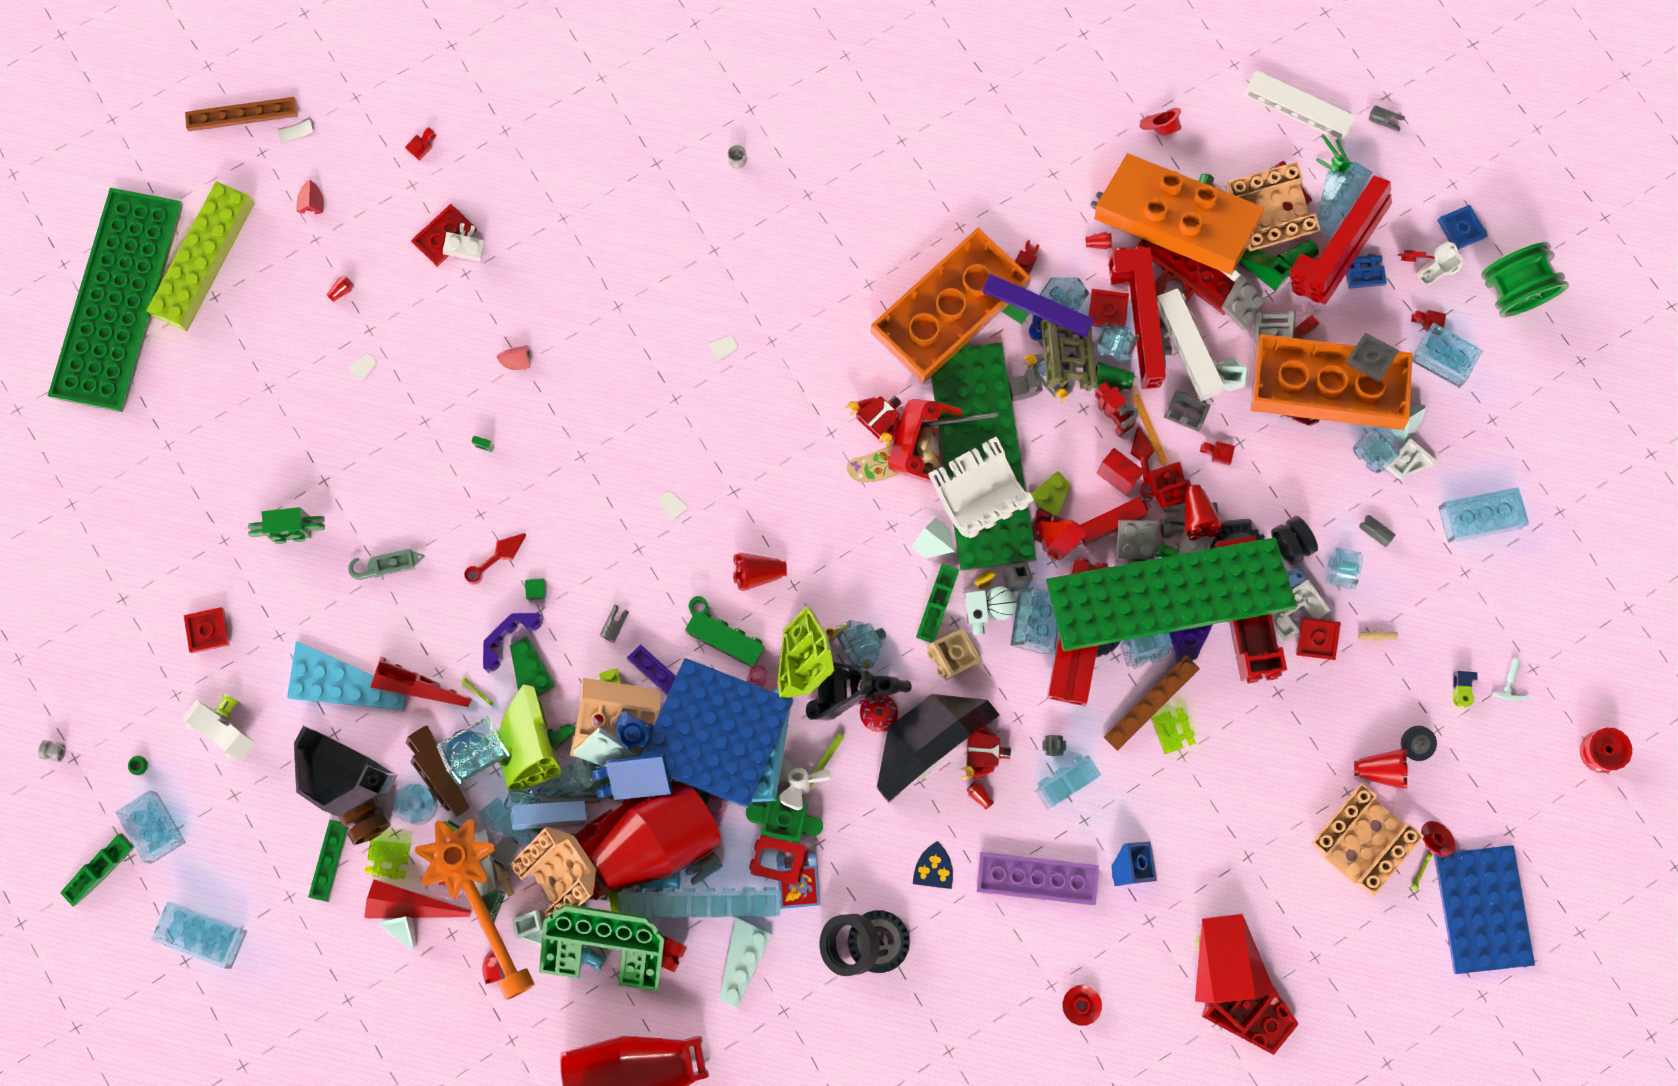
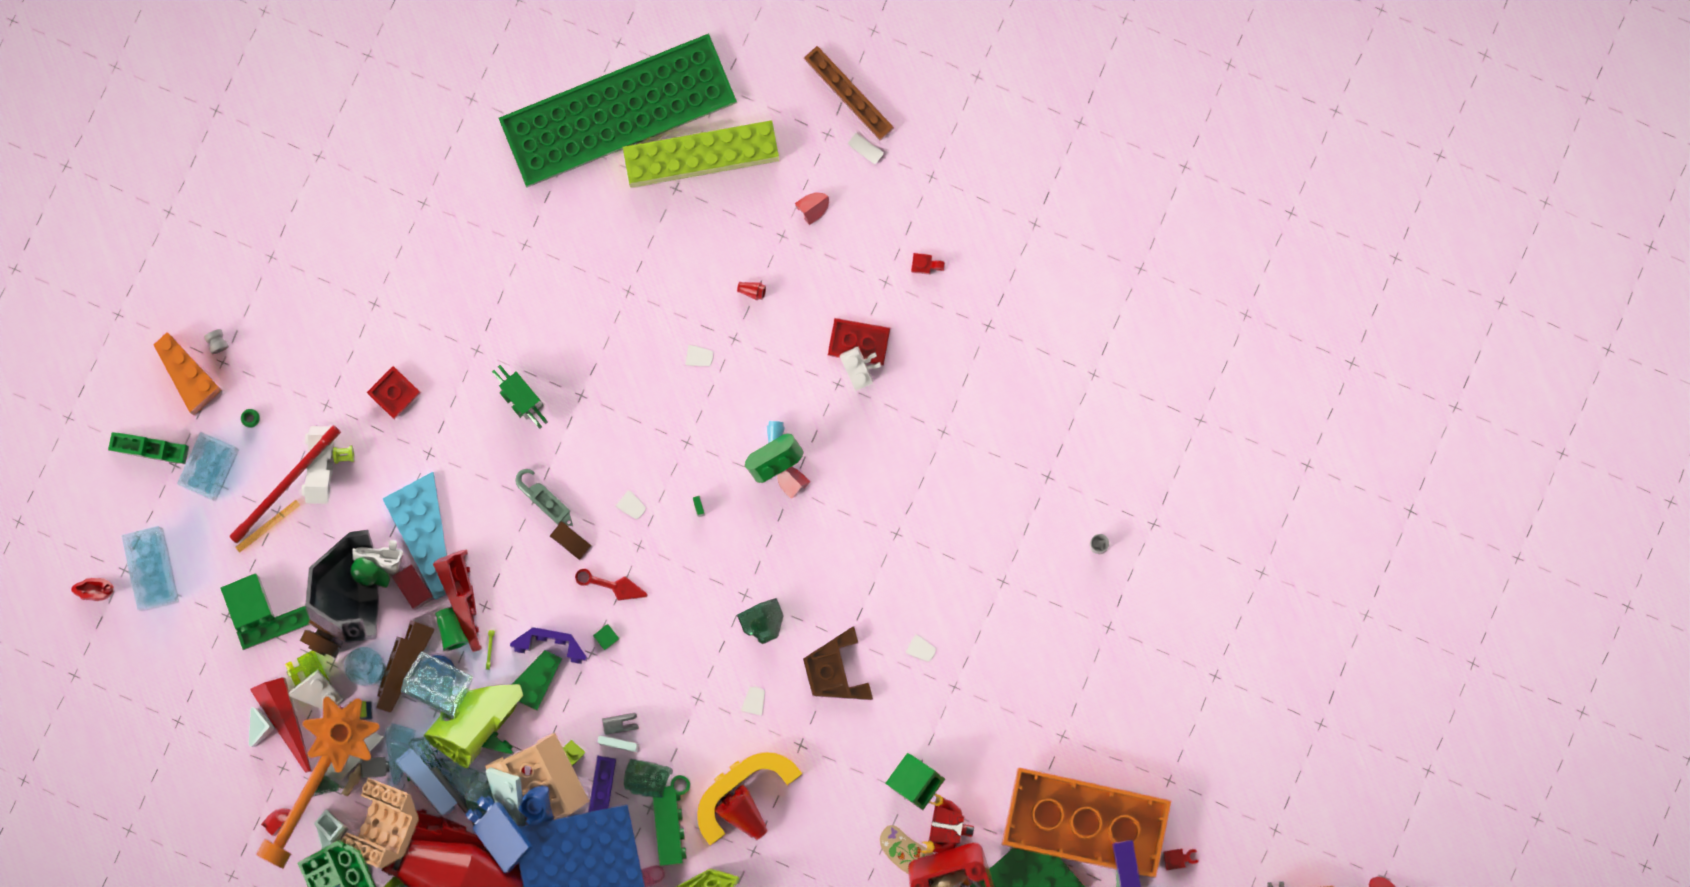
camera: 60 degrees right, 5 degrees up
(67, 793) = (188, 377): none -> orange wedge
(181, 998) = (93, 589): none -> red arm
(201, 709) = (331, 434): none -> red piece
(239, 830) = (267, 526): none -> clear yellow bar
(290, 869) = (247, 603): none -> green brick
(339, 748) = (368, 573): none -> green cap
(340, 727) = (386, 558): none -> white piece
(379, 720) = (412, 587): none -> dark red panel
(404, 861) = (314, 690): none -> white wing
(435, 564) = (570, 540): none -> reddish brown slope
(437, 712) = (450, 630): none -> green plant
(442, 499) = (631, 505): none -> white sticker
(468, 346) = (774, 430): none -> medium azure cone
(486, 356) = (774, 458): none -> green brick
(611, 453) = (762, 620): none -> clear green slope
(629, 633) = (616, 743): none -> light aqua tile
(674, 629) = (646, 778): none -> clear green slope
(690, 430) = (827, 672): none -> reddish brown wing
(732, 519) = (726, 782): none -> yellow arch
(826, 415) = (915, 781): none -> green brick

